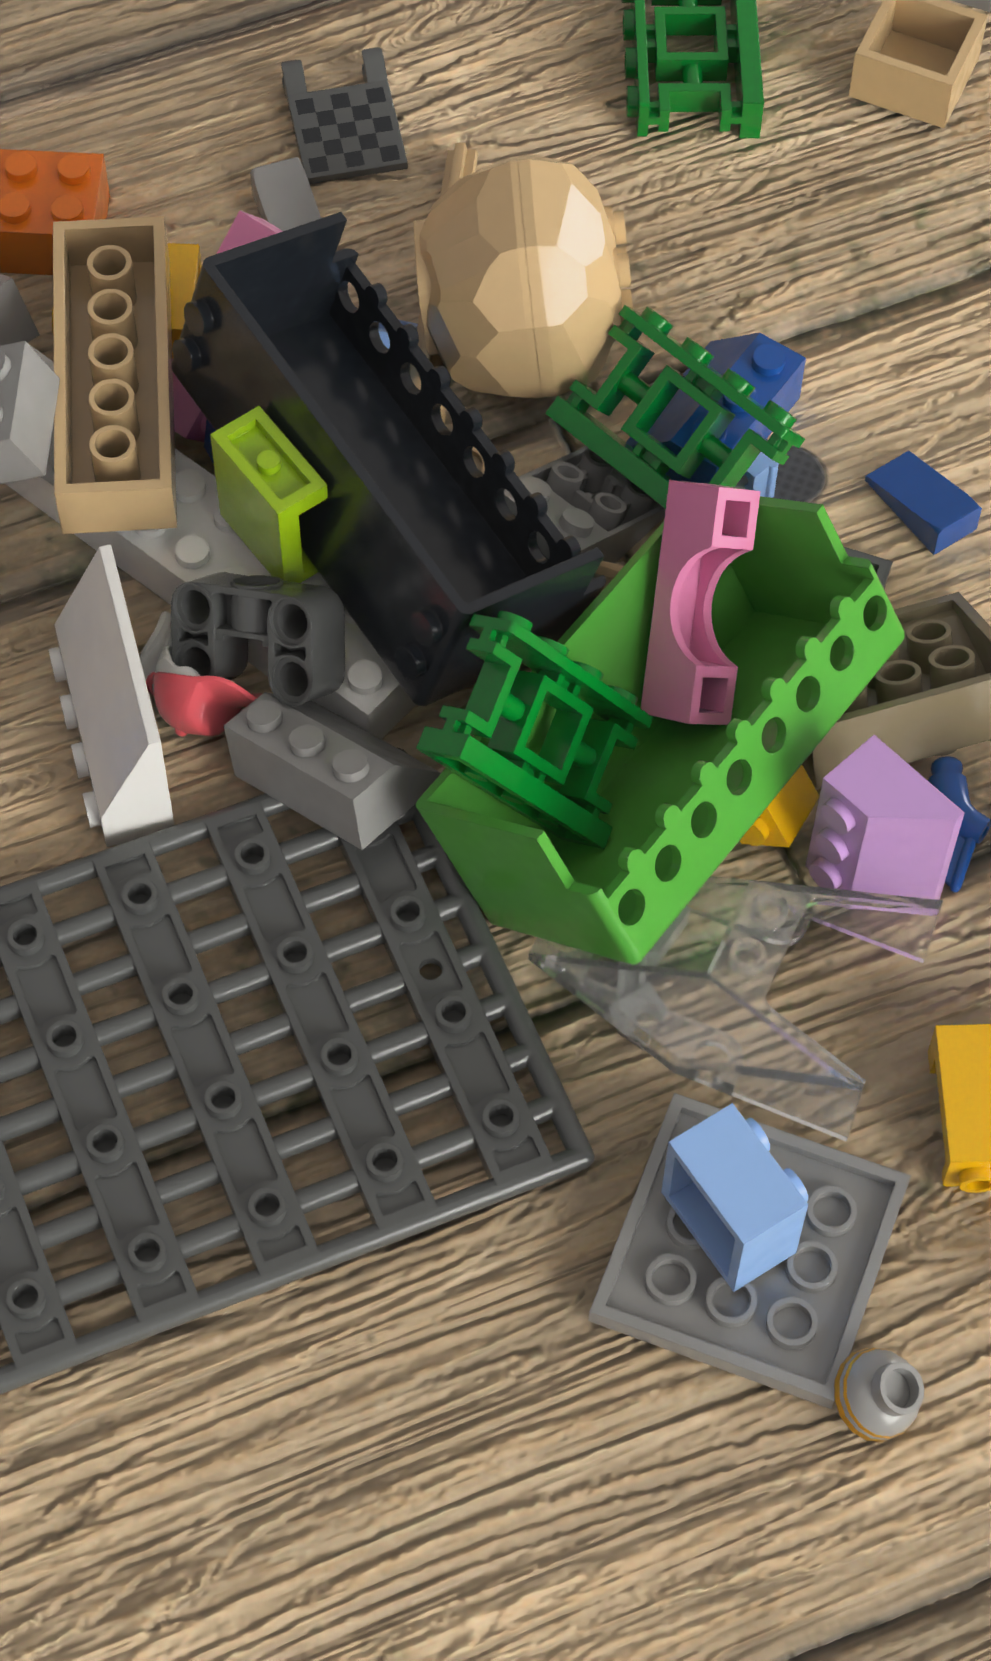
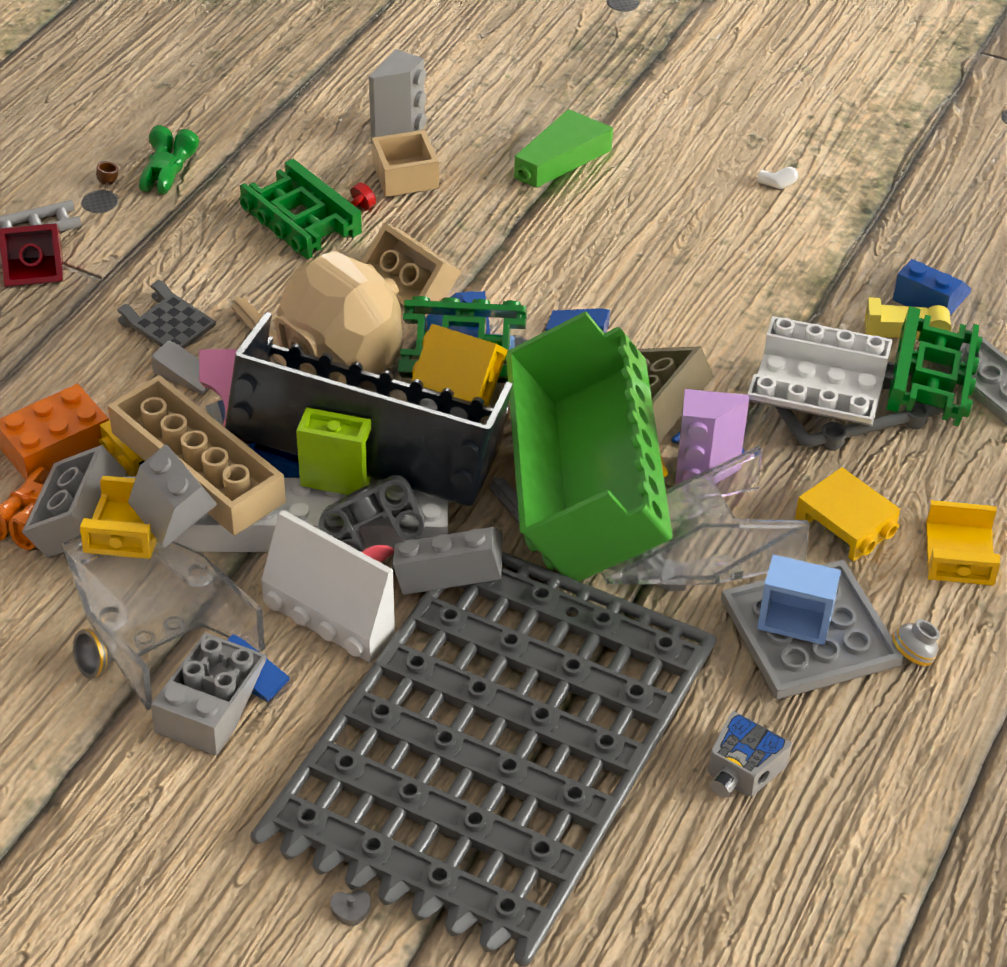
camera: 40 degrees left, 15 degrees down
(439, 1376) = (746, 757): none -> torso
(505, 710) = (541, 466): green fence -> none
(606, 468) = (459, 363): none -> yellow panel
(685, 667) = (534, 359): bright pink arch -> none
(751, 245) = (410, 265): none -> tan slope
(807, 76) = (362, 196): none -> red tile

